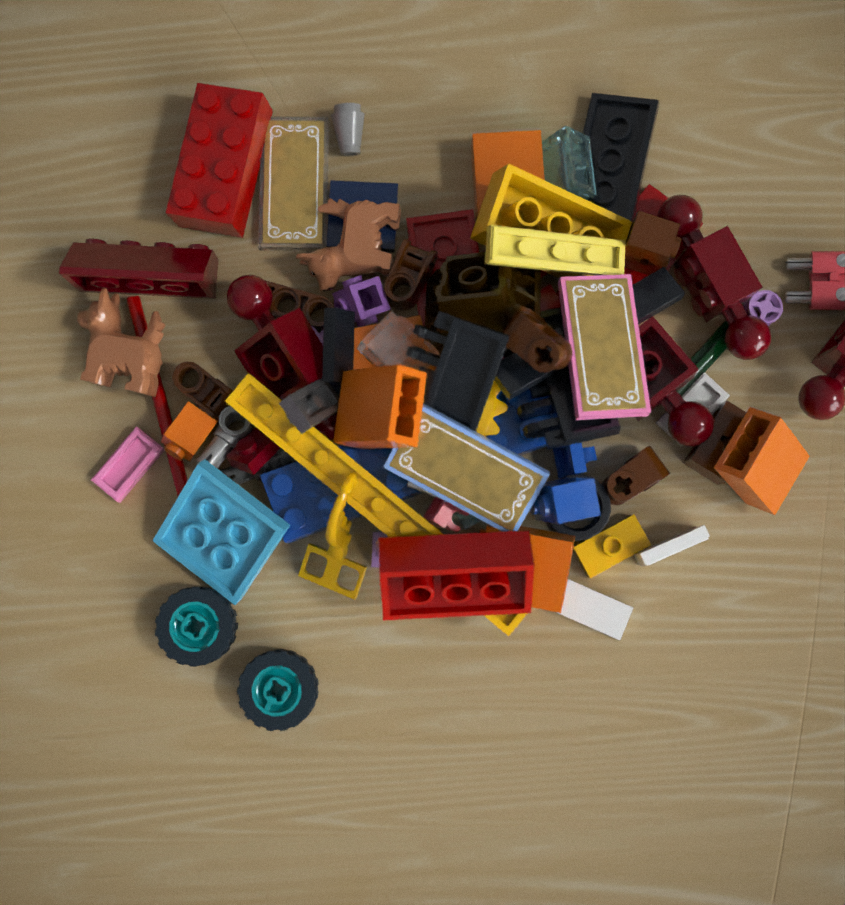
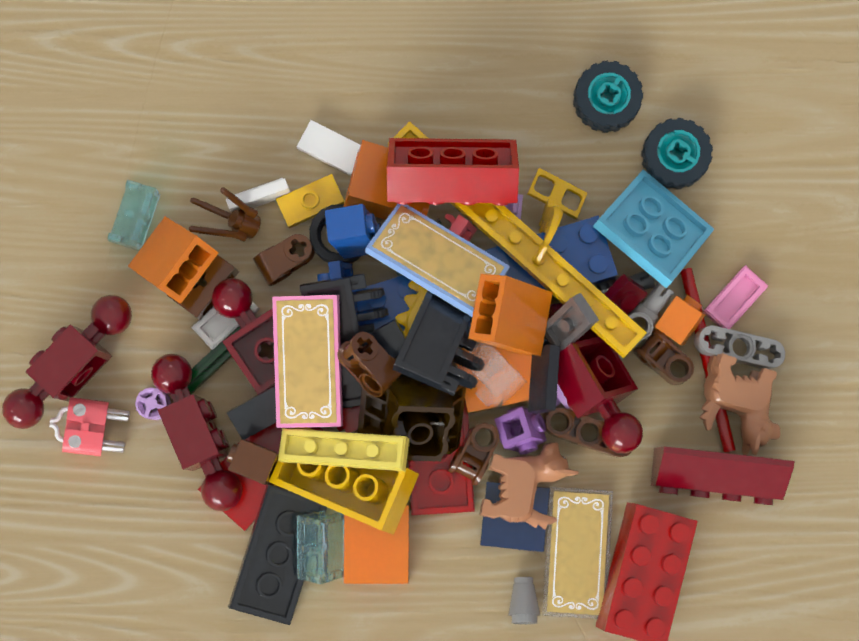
camera: 170 degrees left, 0 degrees up
(111, 398) = (752, 343): none -> light grey beam
(687, 516) = (243, 222): none -> reddish brown plant
(807, 515) = (134, 215): none -> clear light blue hinge

